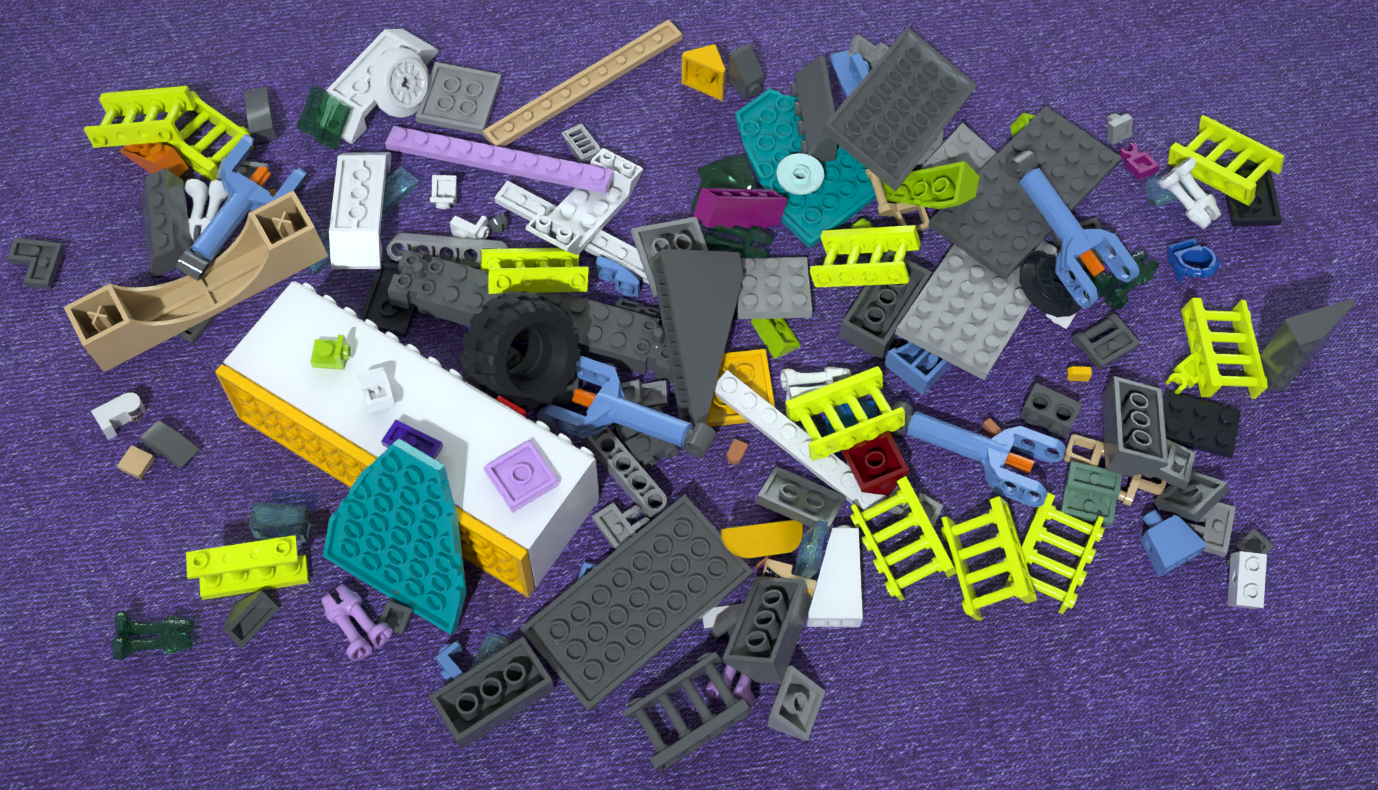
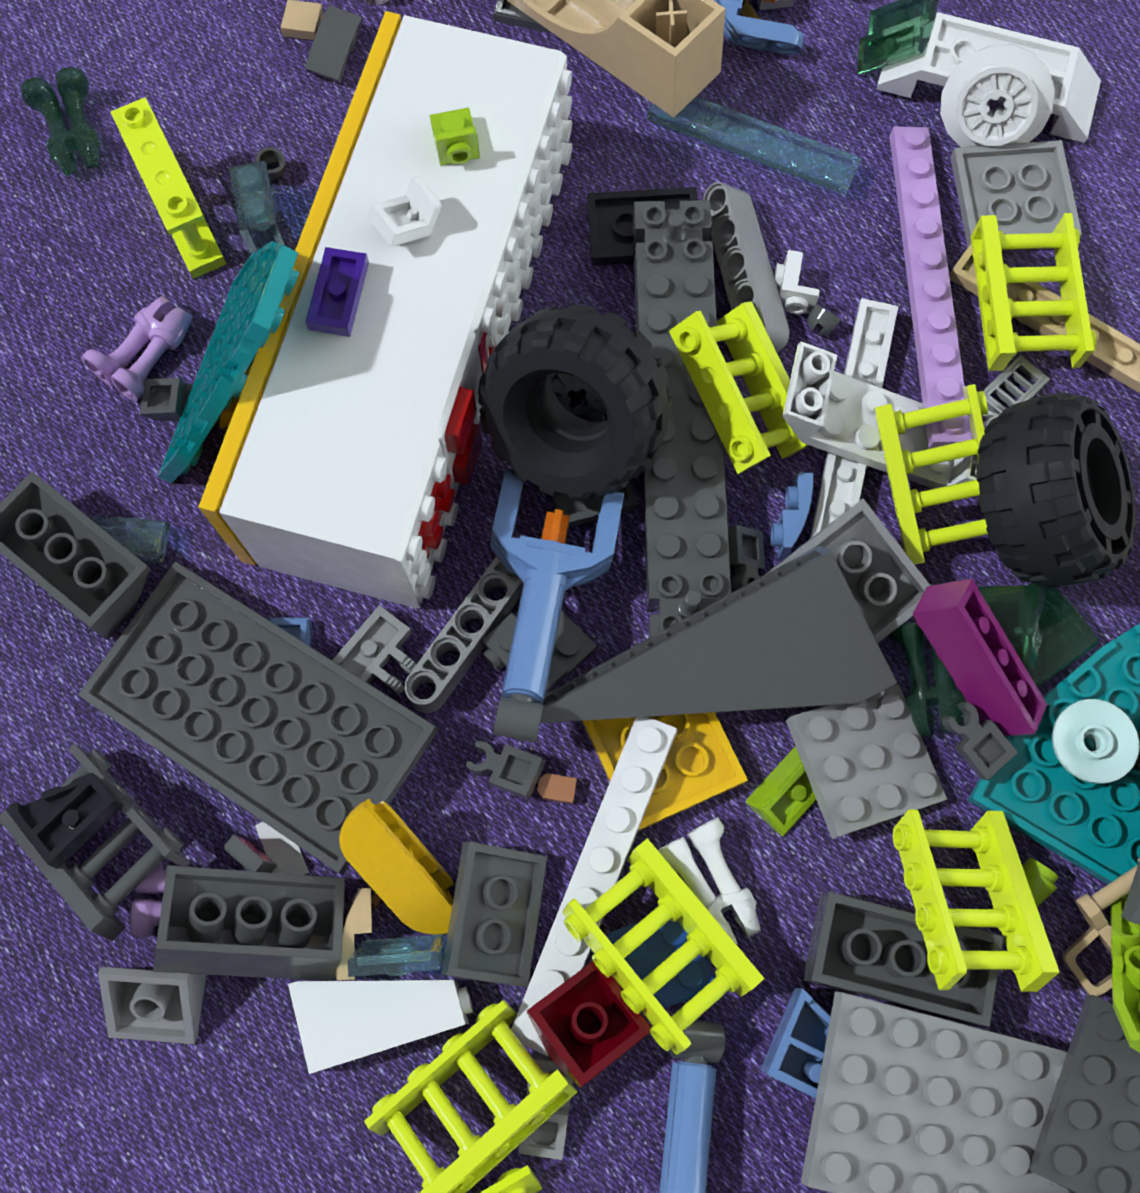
camera: 75 degrees right, 10 degrees up
(241, 508) = (273, 158): none -> dark grey hinge
(249, 617) = (118, 223): dark grey slope -> none
(358, 210) = (764, 120): white slope -> none
(444, 191) = (844, 229): white bracket -> none
(445, 661) = (102, 488): medium blue bracket -> none
(521, 476) = (332, 461): lavender tile -> none
(526, 129) = (998, 309): none -> neon yellow fence
(611, 208) = (901, 463): none -> neon yellow fence
(647, 394) = (607, 616): light grey slope -> none
(661, 136) = (1056, 490): none -> black tyre
(672, 716) = (65, 817): none -> black wing
(718, 470) = (511, 771): none -> dark grey plate
(784, 226) = (981, 744): none -> dark grey plate

